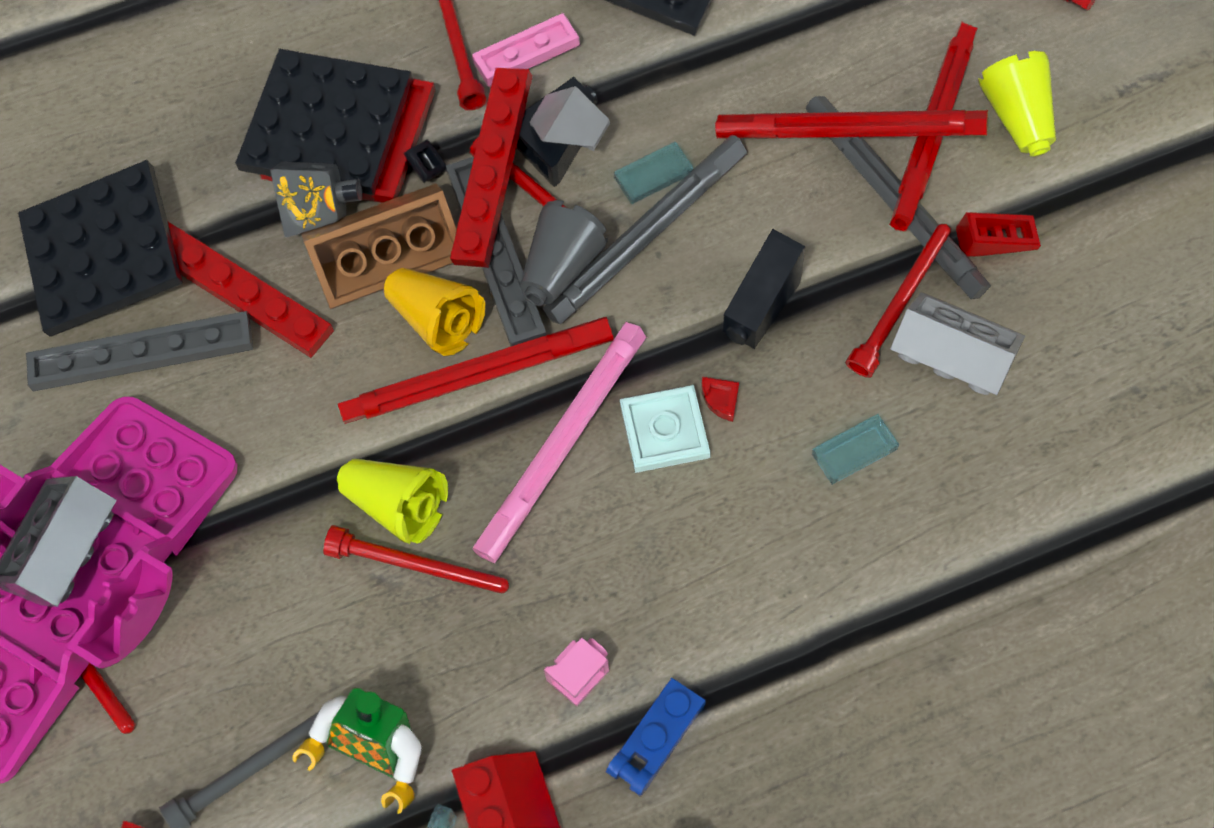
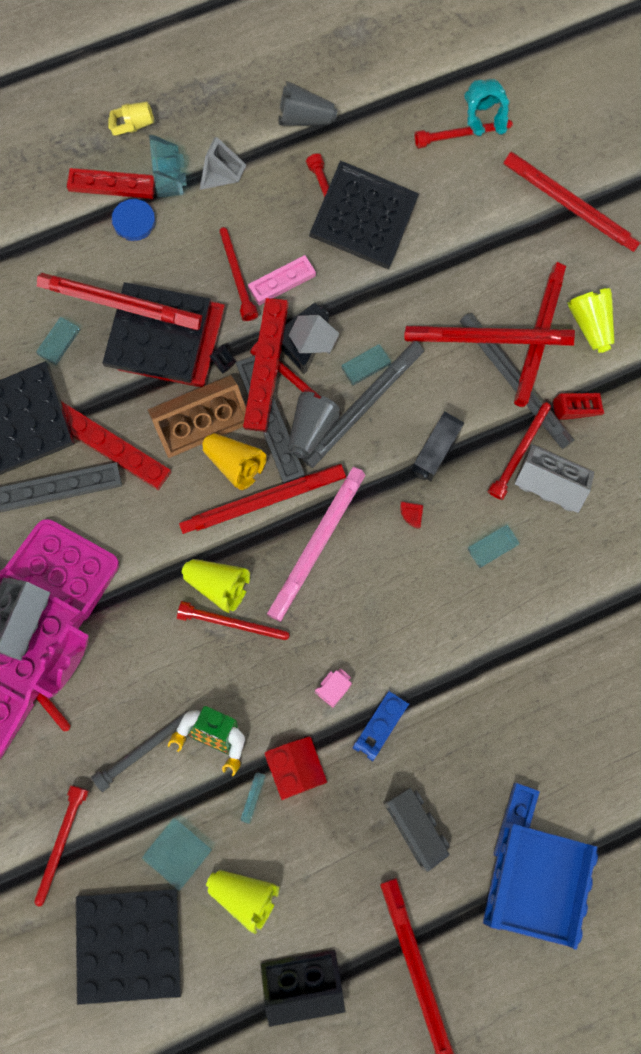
camera: 10 degrees left, 10 degrees up
(173, 137) = (58, 341): none -> clear light blue tile
(270, 72) = (119, 301): none -> piece
(311, 195) = (153, 385): dark grey torso -> none
(664, 428) = (378, 534): light aqua tile -> none

